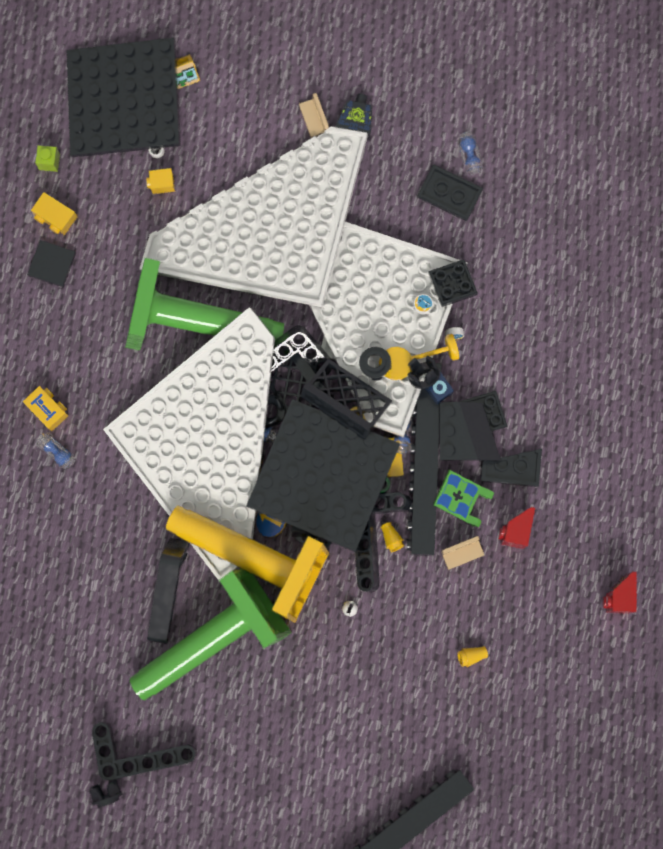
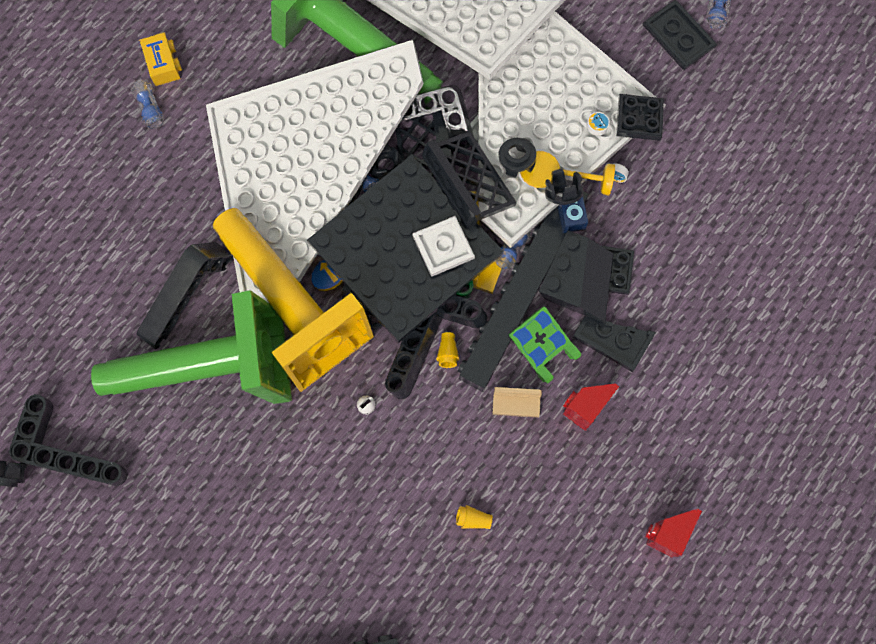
camera: 25 degrees right, 5 degrees down
(354, 462) = (443, 246): none -> white tile

